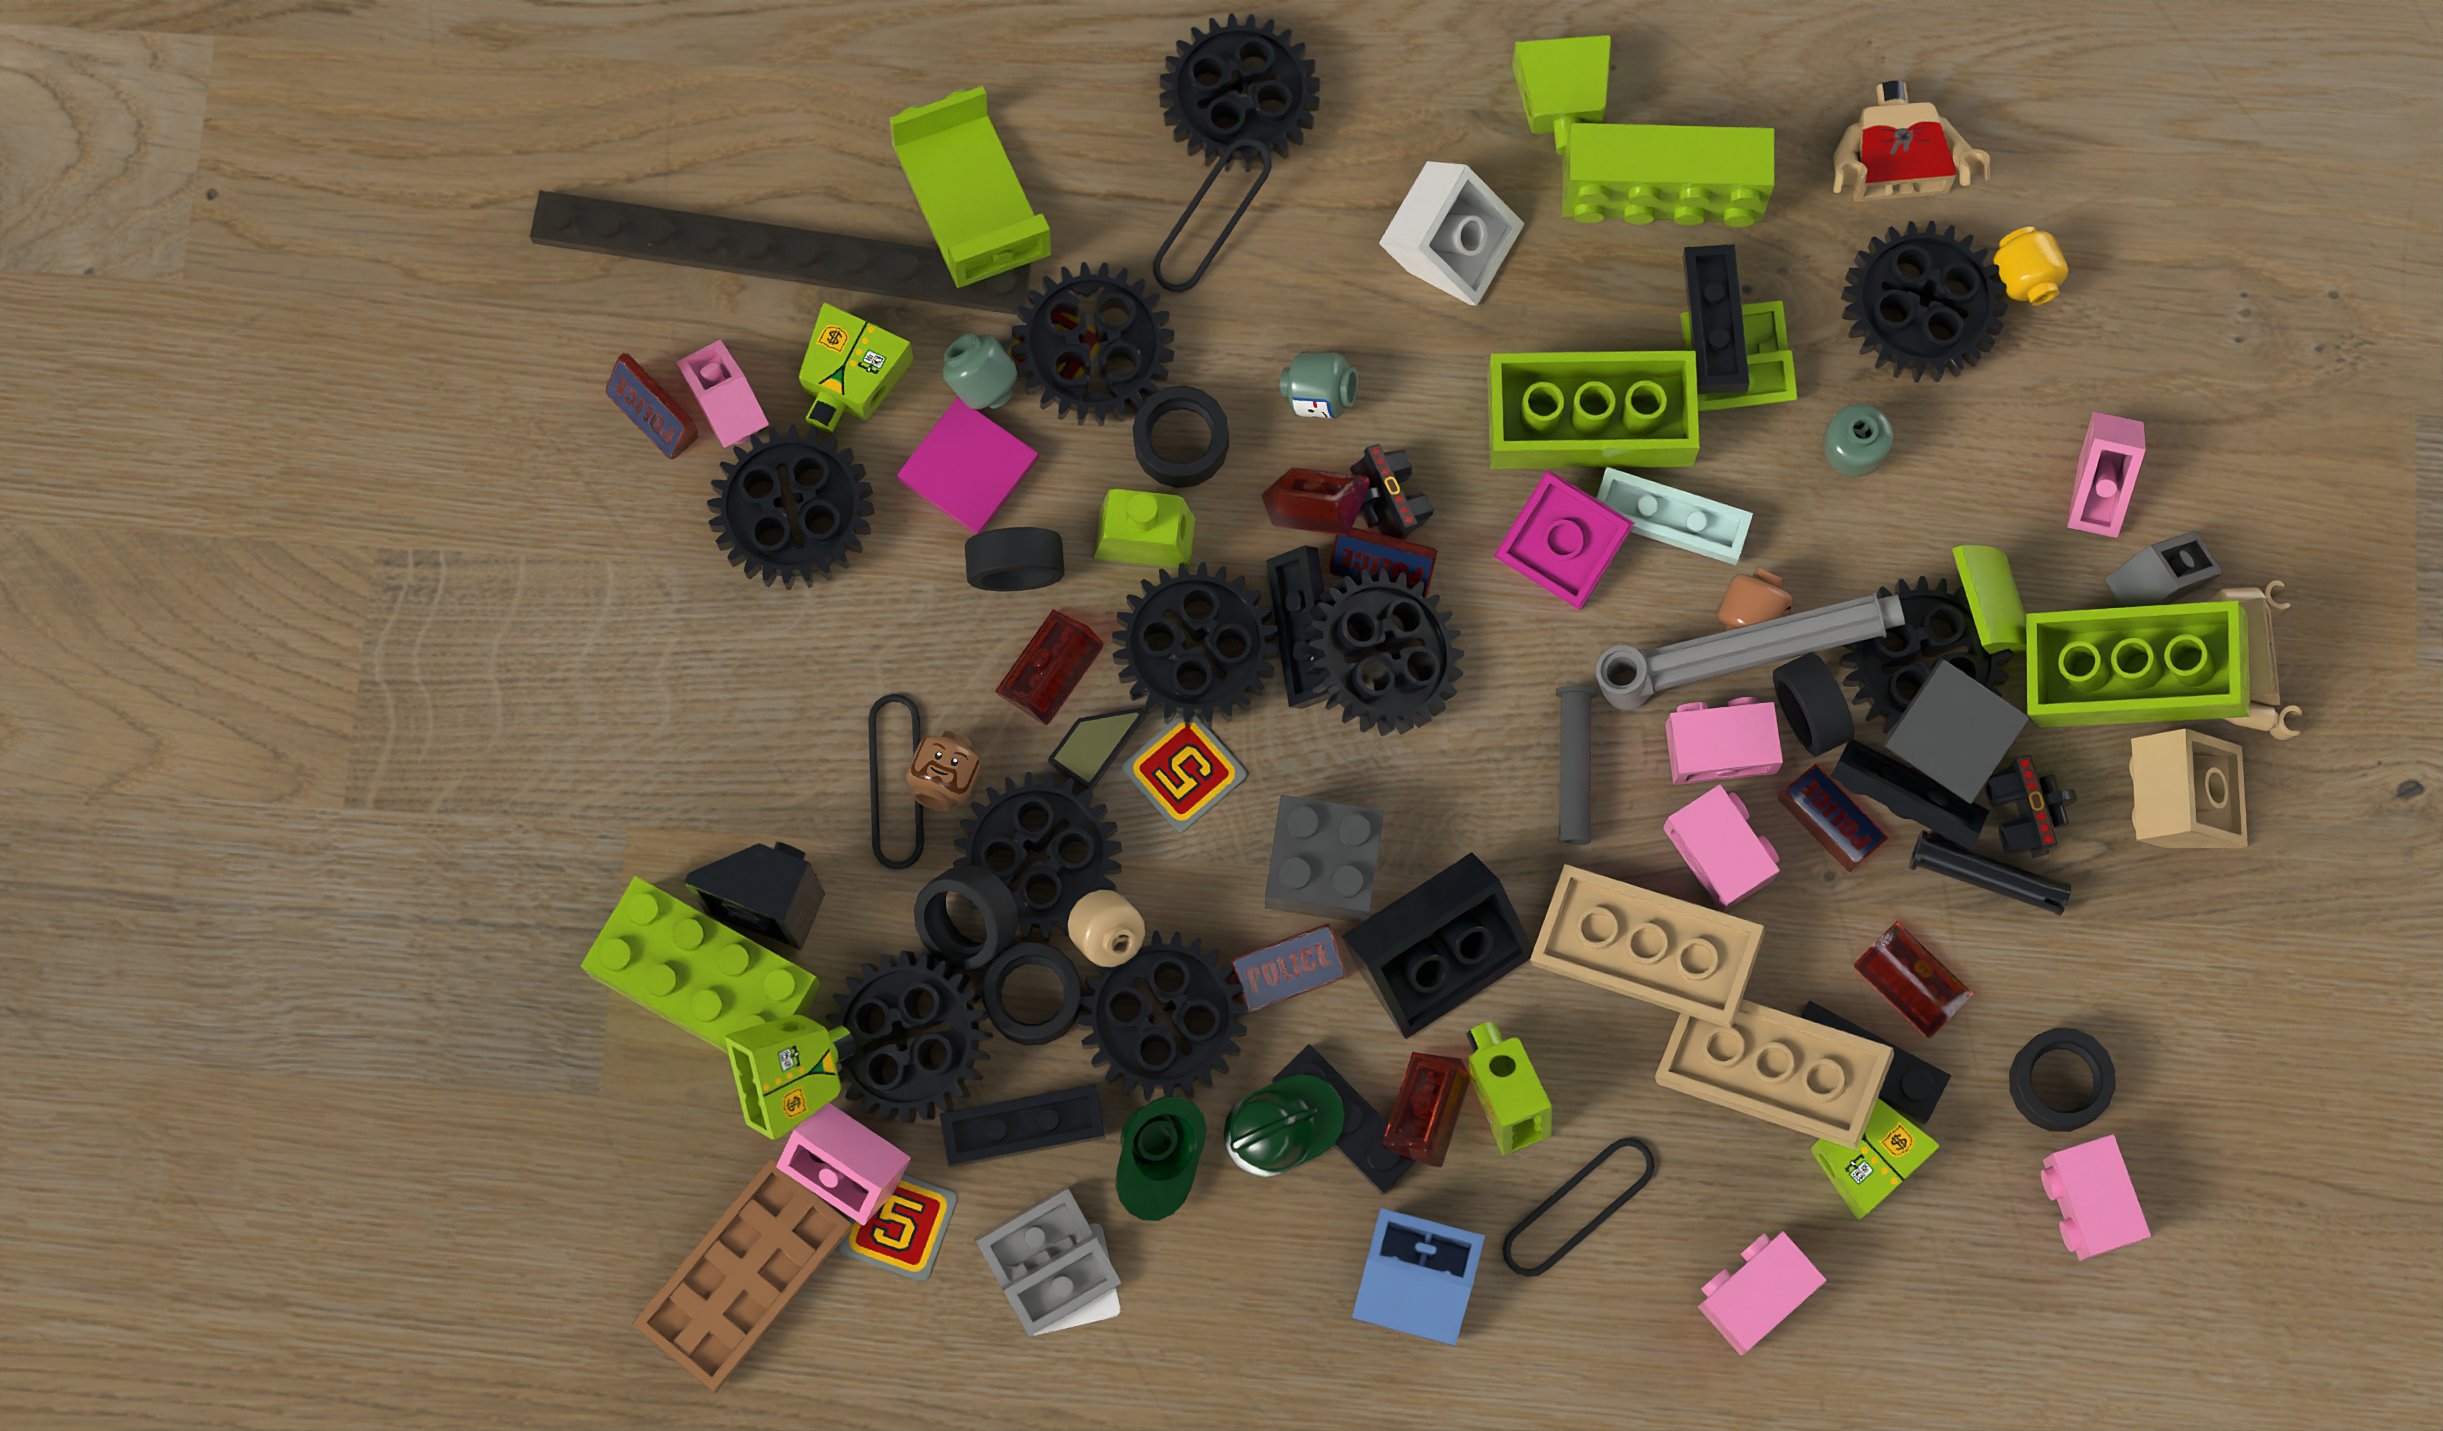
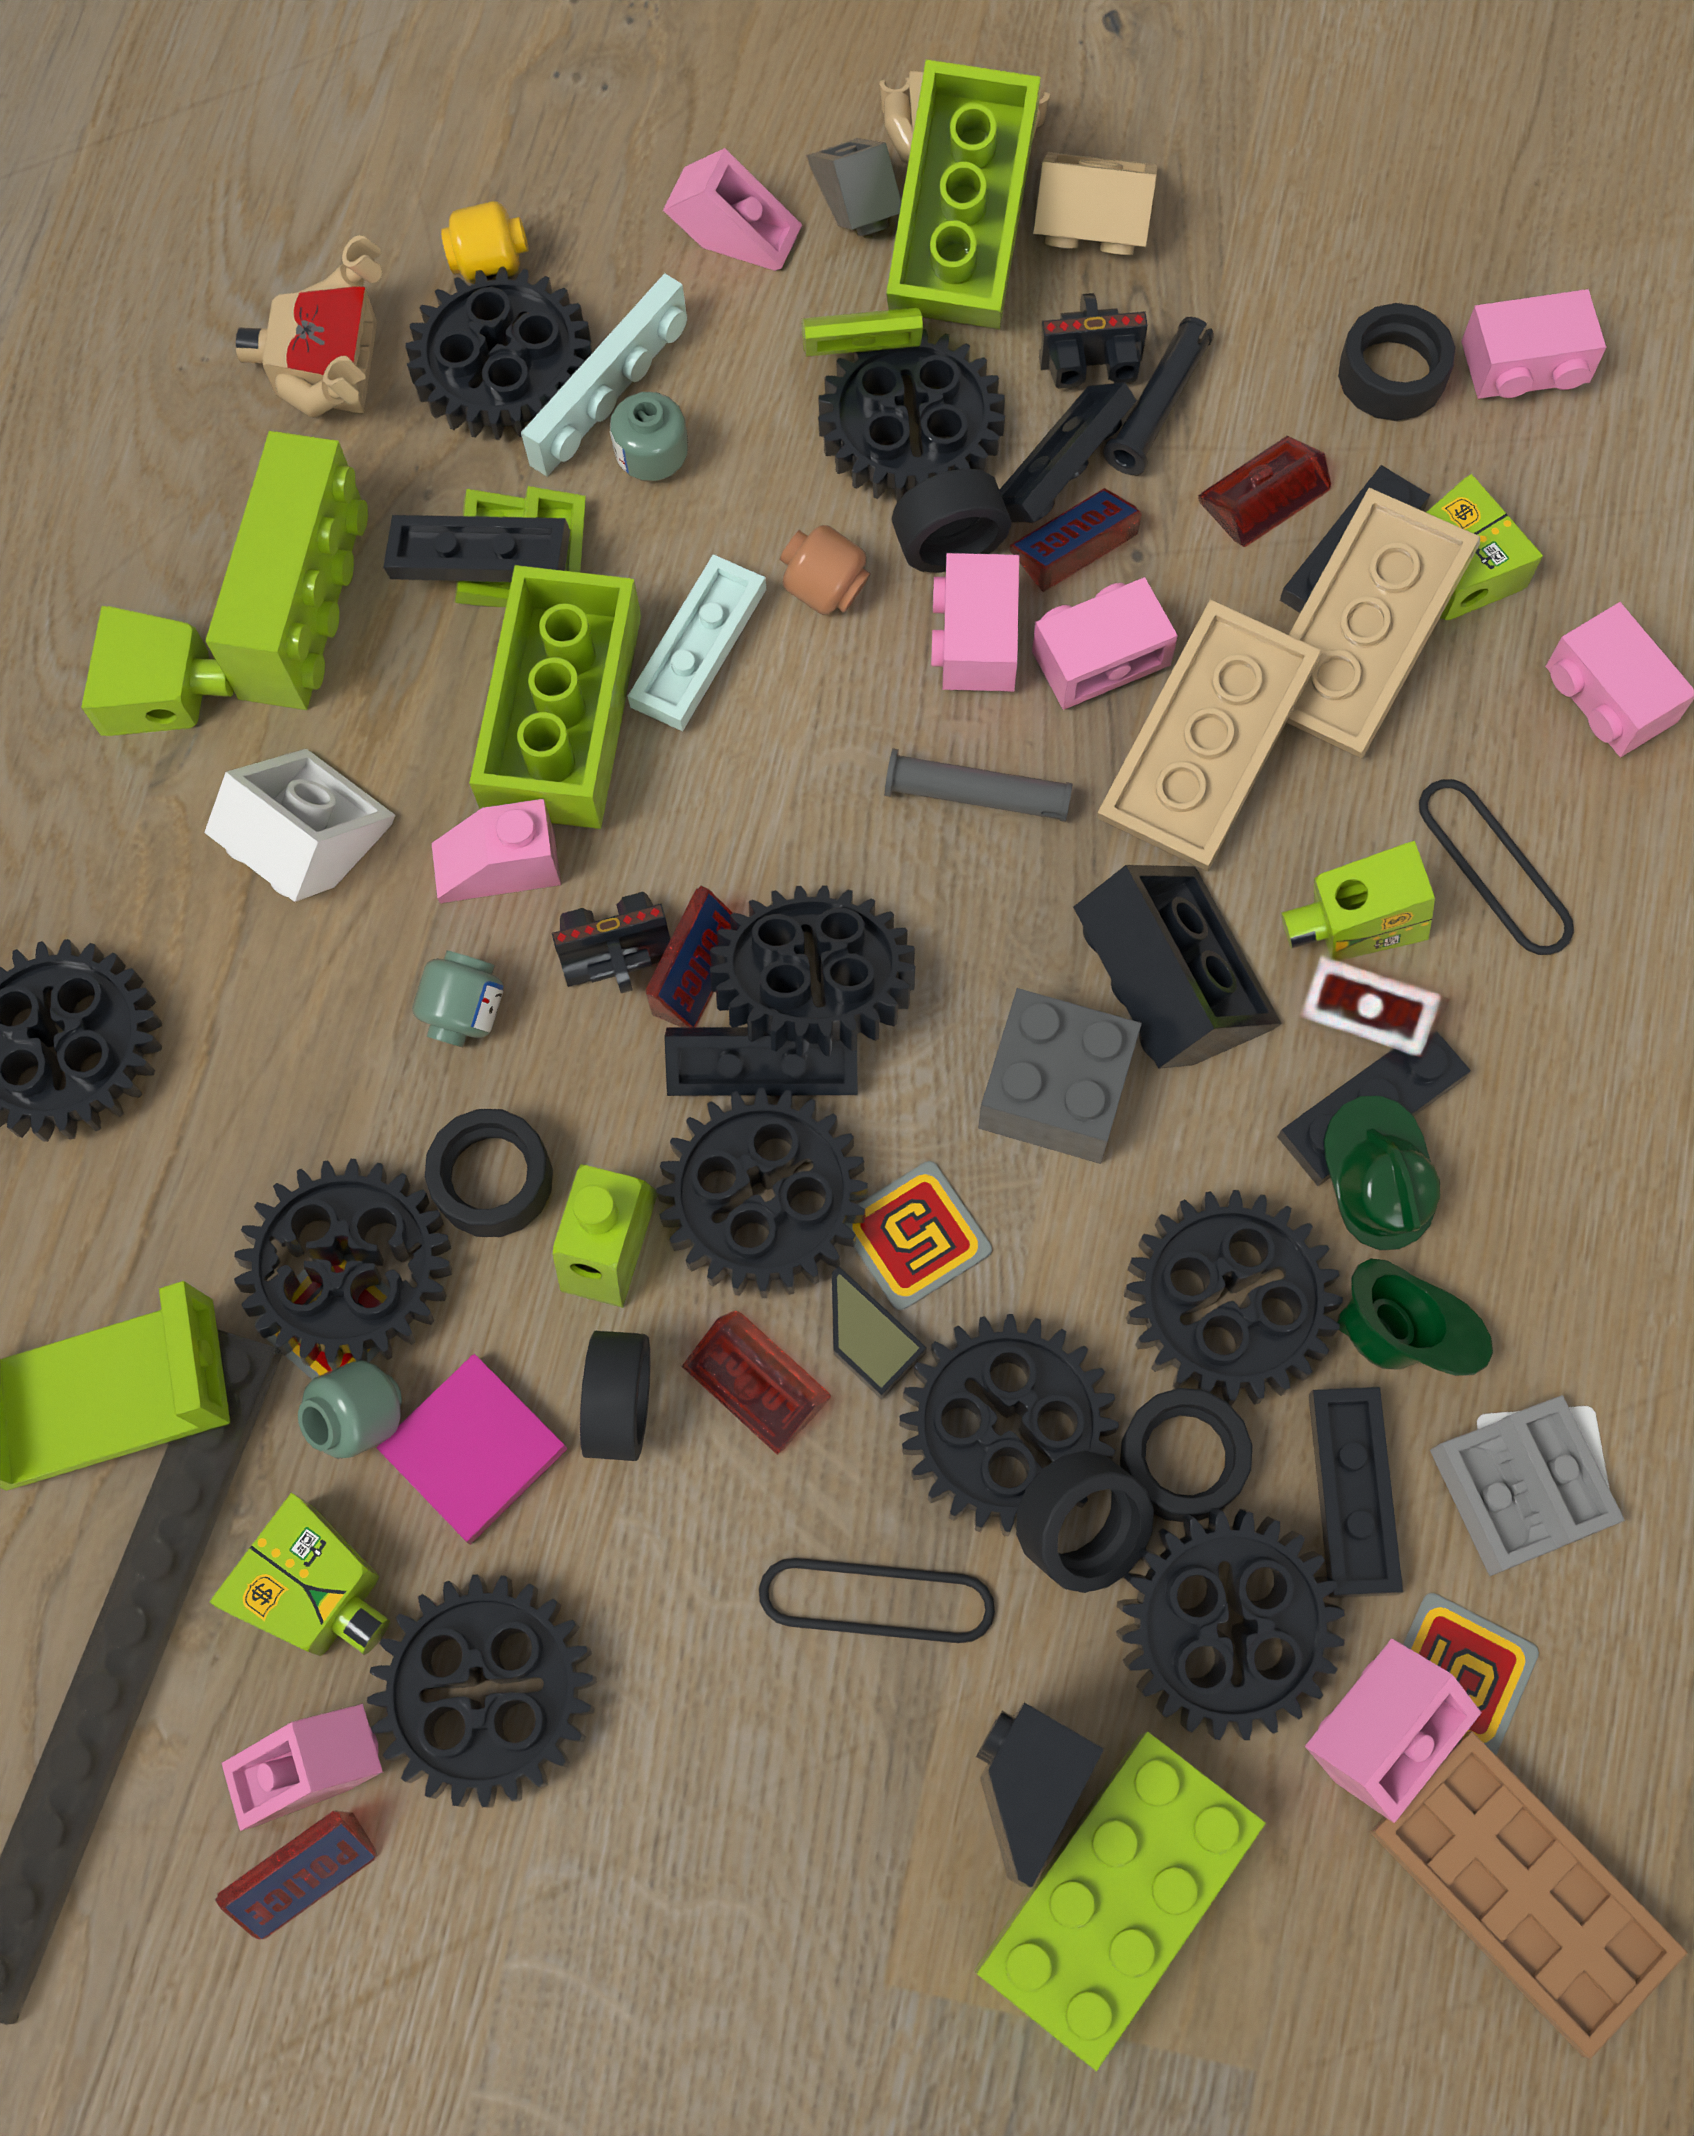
camera: 80 degrees left, 5 degrees down
(786, 1070) = (1278, 1787): lime torso -> none
(943, 771) = (880, 1529): medium nougat head -> none
(1106, 928) = (1125, 1340): tan head -> none
(1229, 227) = (189, 1113): black piece -> none
(1288, 968) = (1182, 1141): dark blue slope -> none
(1315, 500) = (607, 1018): clear red slope -> none
(1418, 1277) = (1578, 1039): medium blue slope -> none
(1450, 392) = (497, 853): none -> bright pink slope
(1564, 539) = (705, 755): dark pink tile -> none
(1744, 648) = (876, 576): light grey piece -> none
(1933, 403) = (604, 376): none -> light aqua plate
(1955, 731) = (1004, 387): dark grey tile -> none

